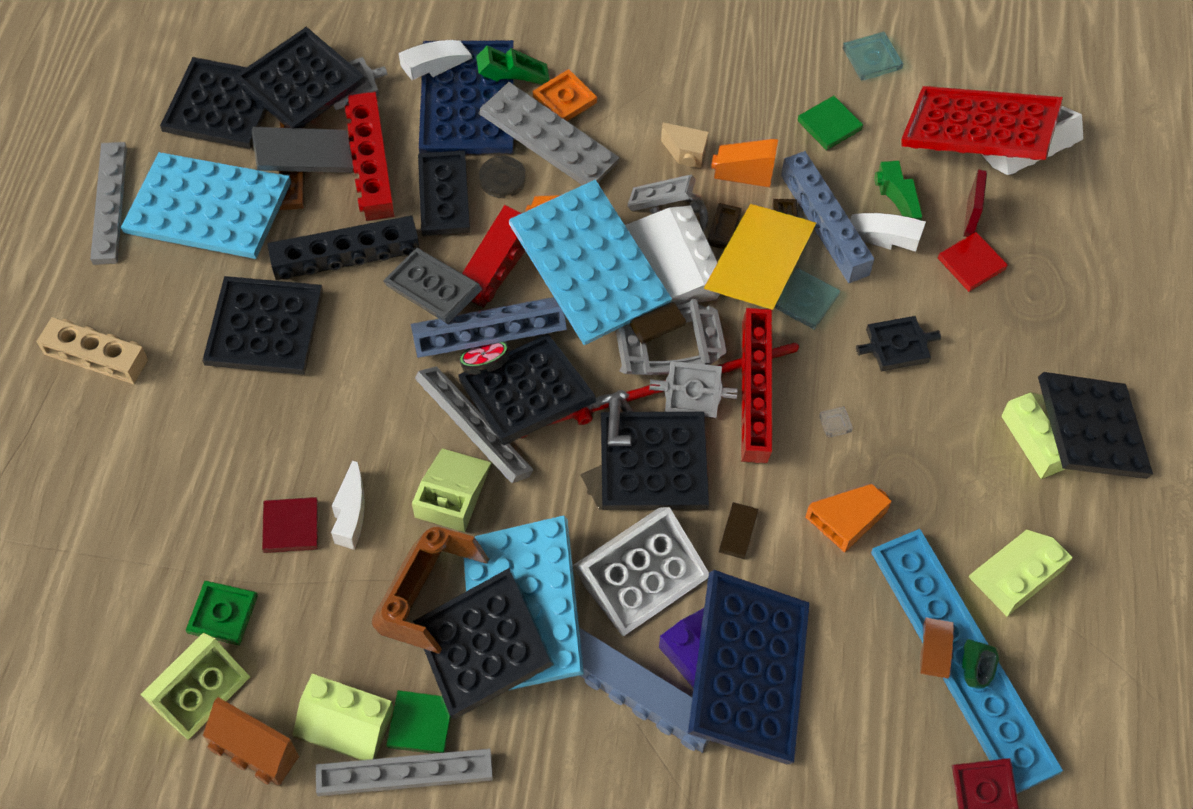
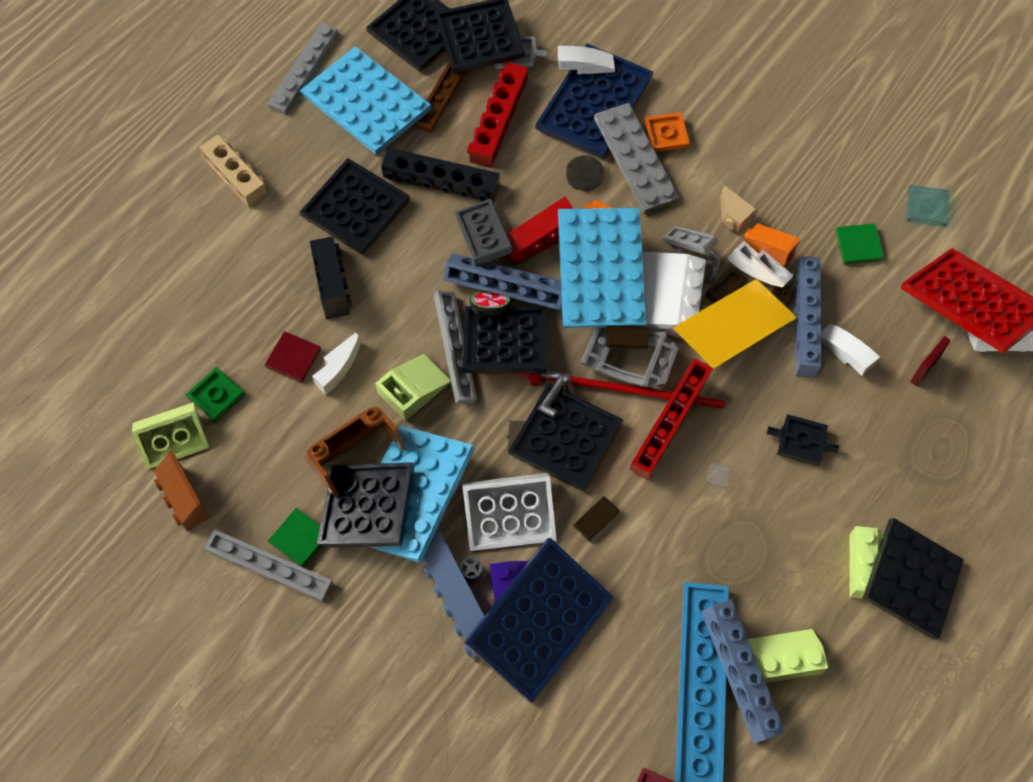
camera: 30 degrees right, 5 degrees up
(283, 415) = (329, 277): none -> black wedge
(302, 150) = (451, 88): dark grey tile -> none
(342, 718) = (249, 507): yellowish green slope -> none
(443, 193) = (534, 166): black plate -> none
(511, 65) = (639, 91): green slope -> none
(641, 648) = (471, 565): none -> flat silver wheel
(693, 388) = (624, 398): light grey plate -> none
(746, 187) = (759, 265): none -> white slope
(806, 298) = (754, 371): clear light blue tile -> none
(849, 514) = (684, 548): orange slope -> none
(899, 190) = (878, 322): green slope -> none
(936, 648) = (683, 678): dark orange slope -> none
(972, 261) = (903, 405): red tile -> none
(979, 663) = (706, 706): dark green rock -> none
(992, 607) = (742, 671): none -> sand blue brick

